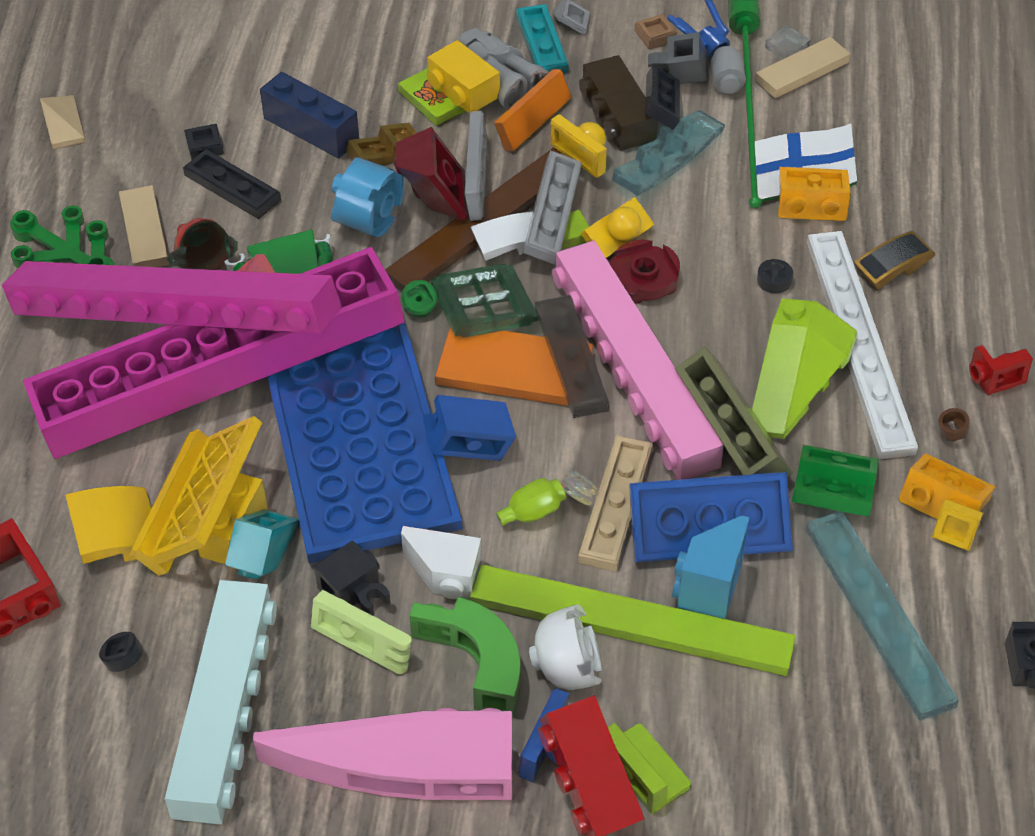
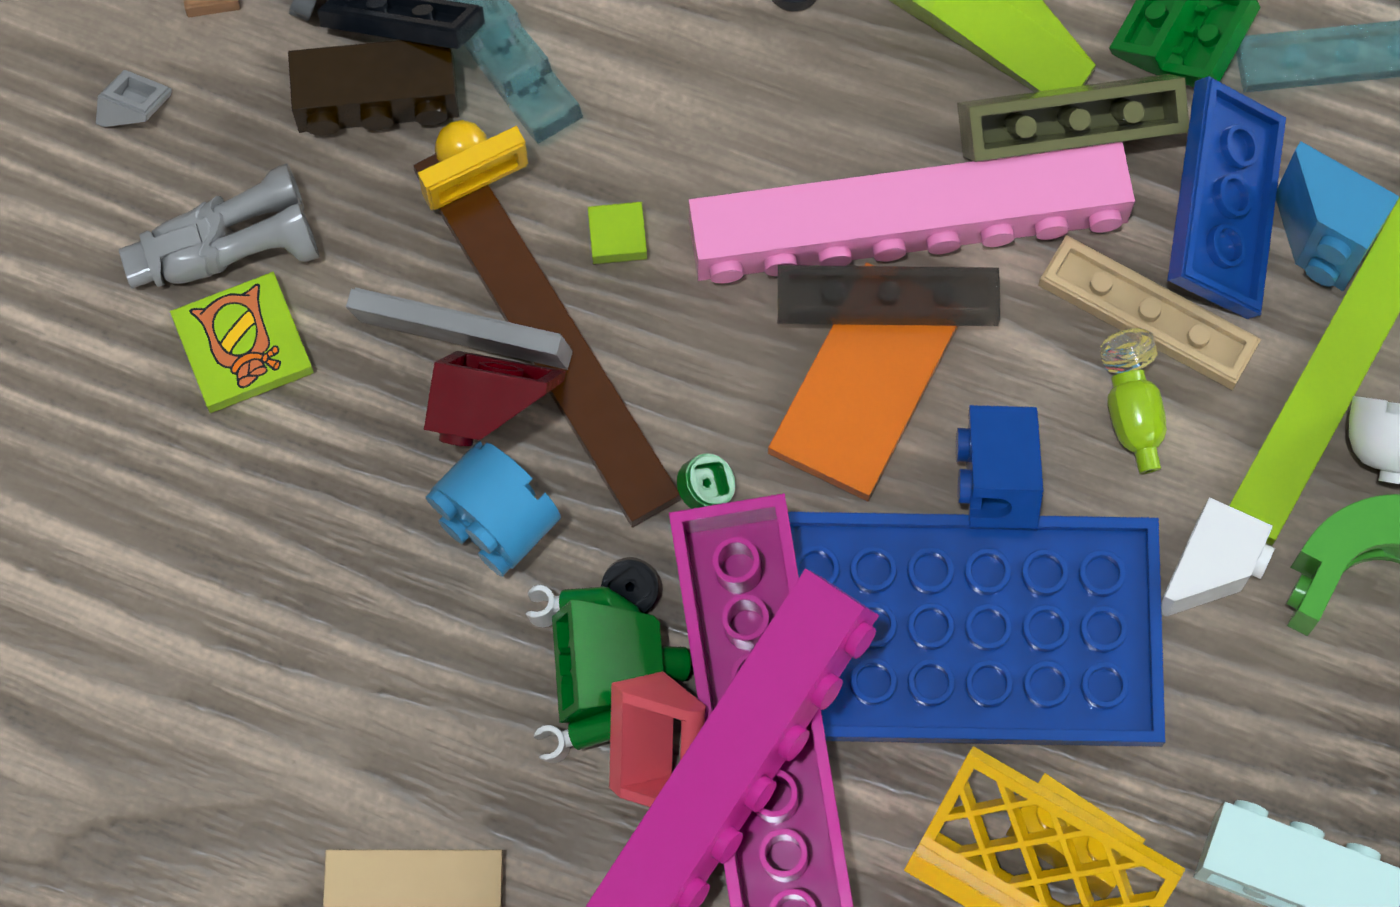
camera: 75 degrees left, 20 degrees up
(202, 245) = (504, 793): hat -> none
(203, 138) = (234, 750): black tile -> none
(232, 183) = (351, 721): black tile -> none
(260, 542) = (1129, 794): teal slope -> none
(309, 114) = (248, 560): dark blue brick -> none
(352, 577) = (1215, 690): black brick -> none
(361, 632) = (1309, 693): yellowish green hinge -> none
(380, 148) = (345, 462): pearl gold slope -> none
(454, 308) = (741, 435): clear green piece -> none
(463, 77) = (255, 298): yellow brick -> none
(502, 234) = (618, 318): white slope -> none
(533, 110) = (348, 214): orange tile -> none
(541, 38) = (169, 160): teal tile -> none
(552, 207) = (585, 241): light grey tile -> none
(619, 227) = (648, 162): yellow tile -> none
(650, 285) = (744, 122): dark red plate -> none

